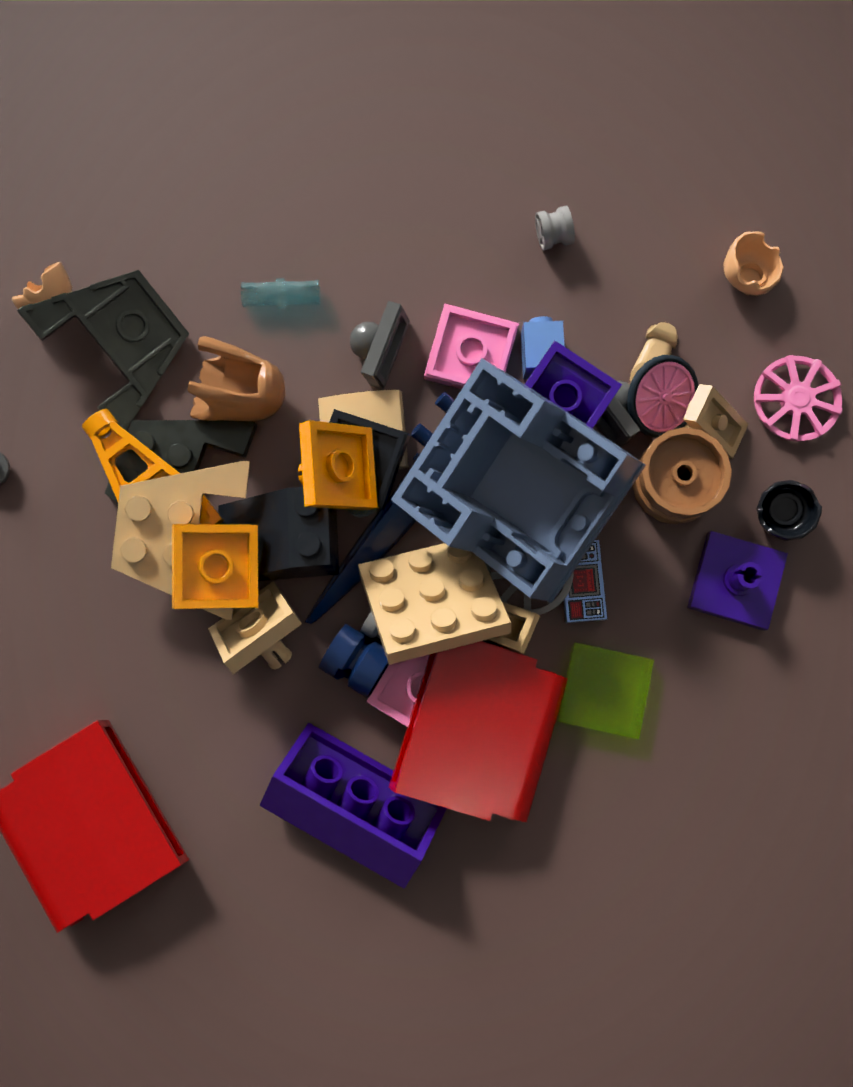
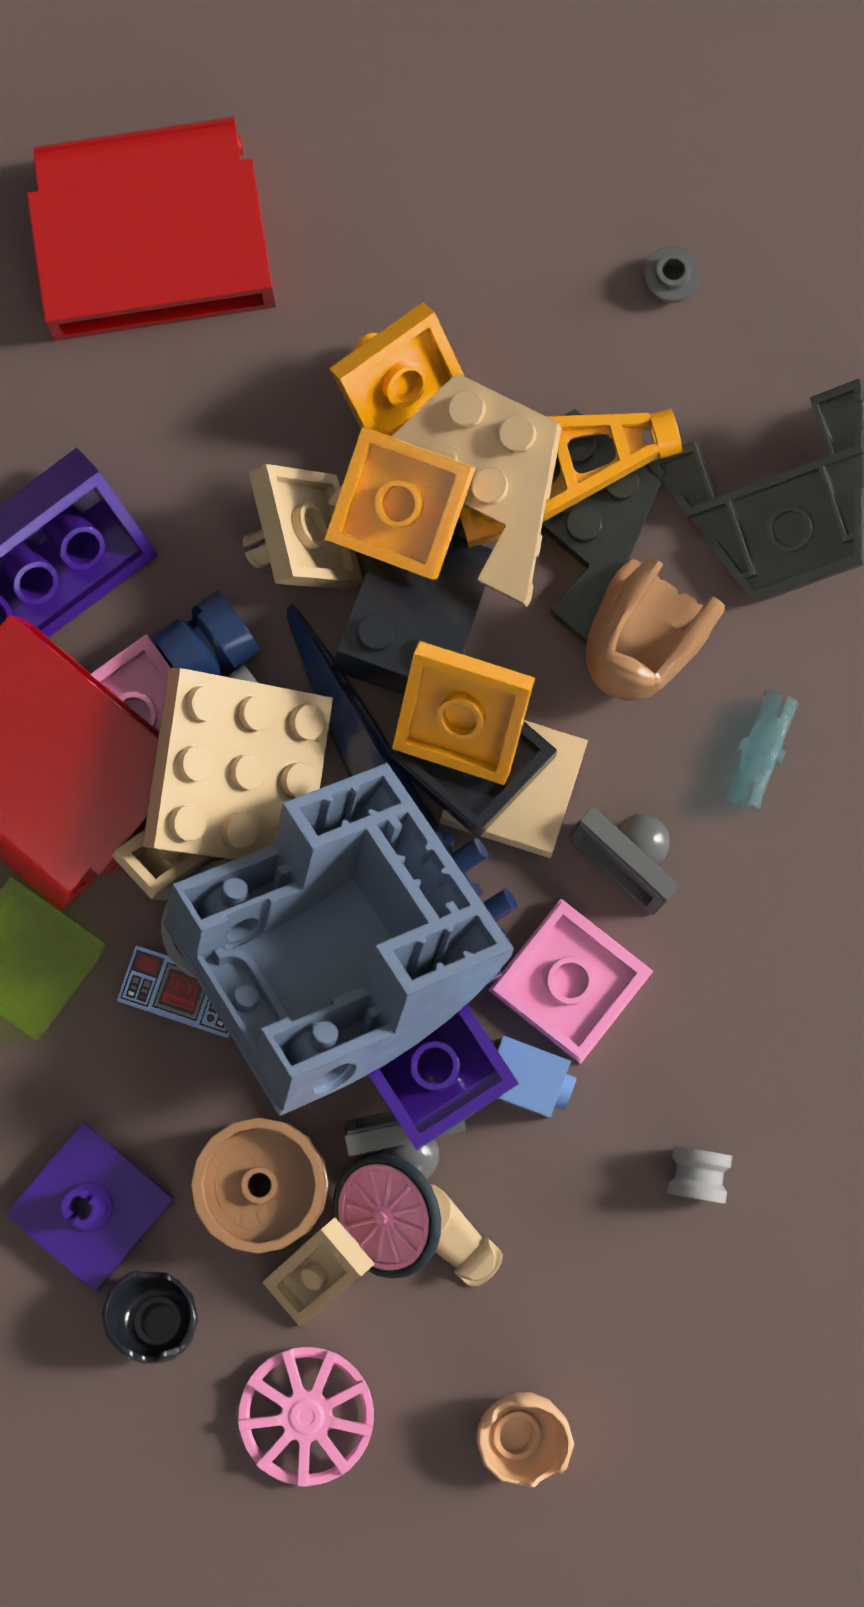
camera: 115 degrees right, 0 degrees up
(126, 610) = (396, 370): none -> light orange tile

